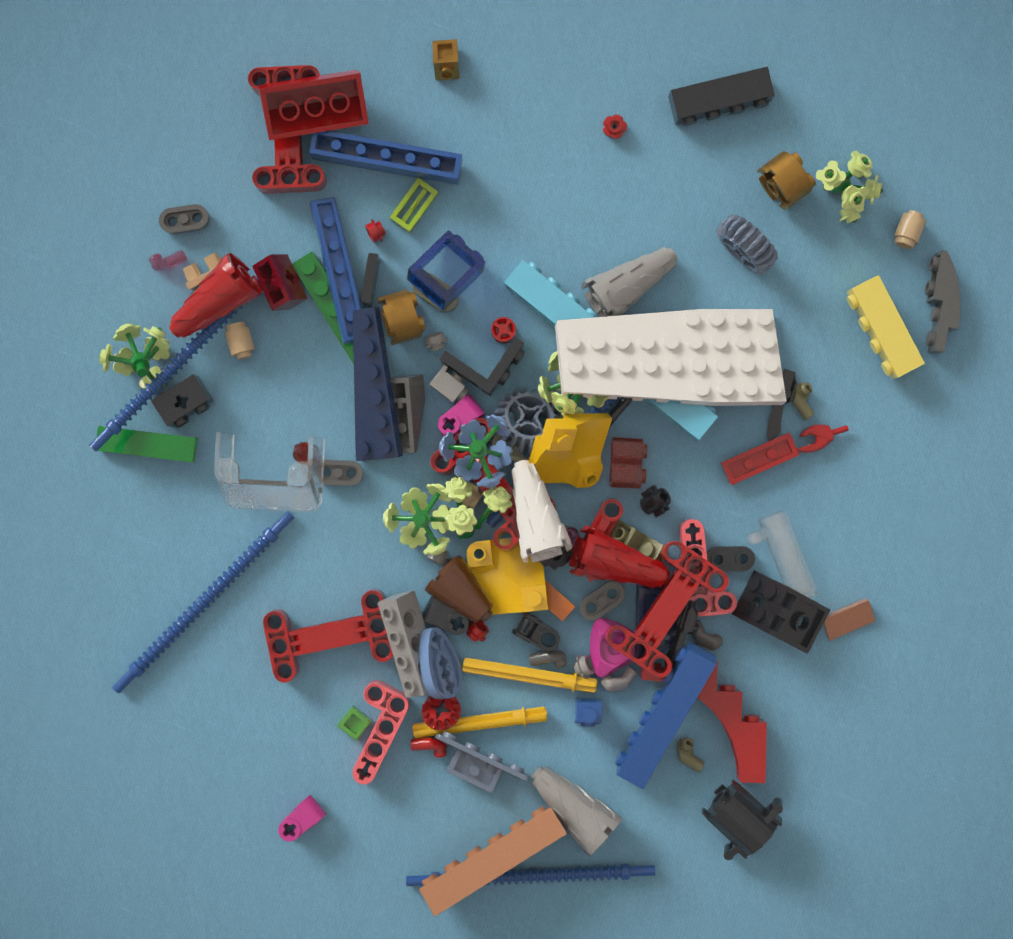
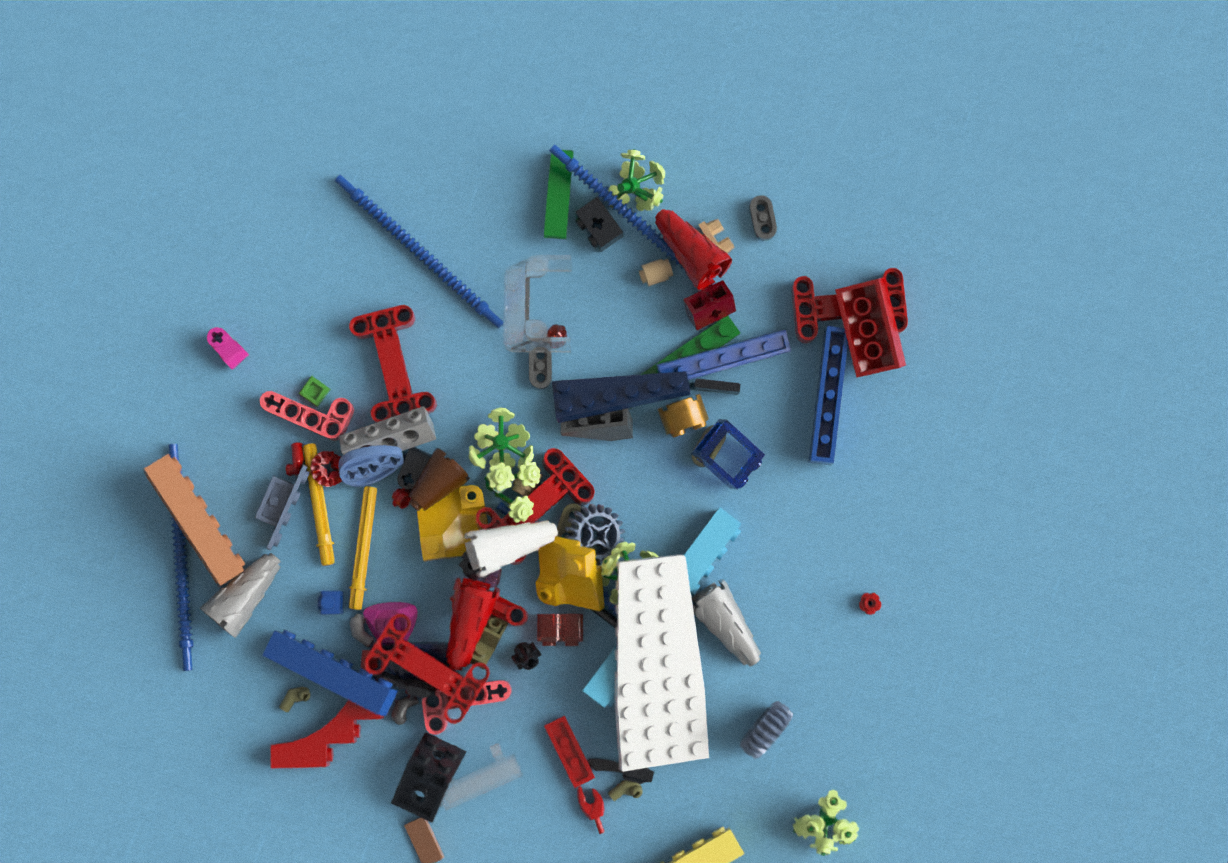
camera: 85 degrees right, 5 degrees down
(168, 262) = (723, 206): clear pink arm -> none
(375, 231) = (761, 389): red plate -> none
(402, 222) = (808, 426): lime tile -> none
(435, 341) = (664, 448): light grey plate -> none
(440, 559) = (465, 462): light grey plate -> none
(445, 59) = (922, 445): pearl gold bracket -> none
(449, 385) = (624, 462): light grey brick -> none
(462, 413) = (598, 475): dark pink piece -> none
(476, 442) = (576, 486): medium blue plant -> none
(499, 374) = (635, 506): black bracket -> none
(506, 326) = (679, 507): red wheel -> none
(535, 632) = (403, 551): black piece -> none
(544, 657) = (380, 563): dark grey arm -> none
(558, 603) = (429, 570): orange piece -> none
(583, 666) = (372, 597): light grey plate -> none
(601, 600) = (432, 611): dark grey plate -> none
(721, 96) = (903, 700): black brick -> none
(730, 558) = (477, 728): black plate -> none
(742, 819) = (237, 748): black container -> none
(786, 179) = (828, 763): pearl gold brick -> none

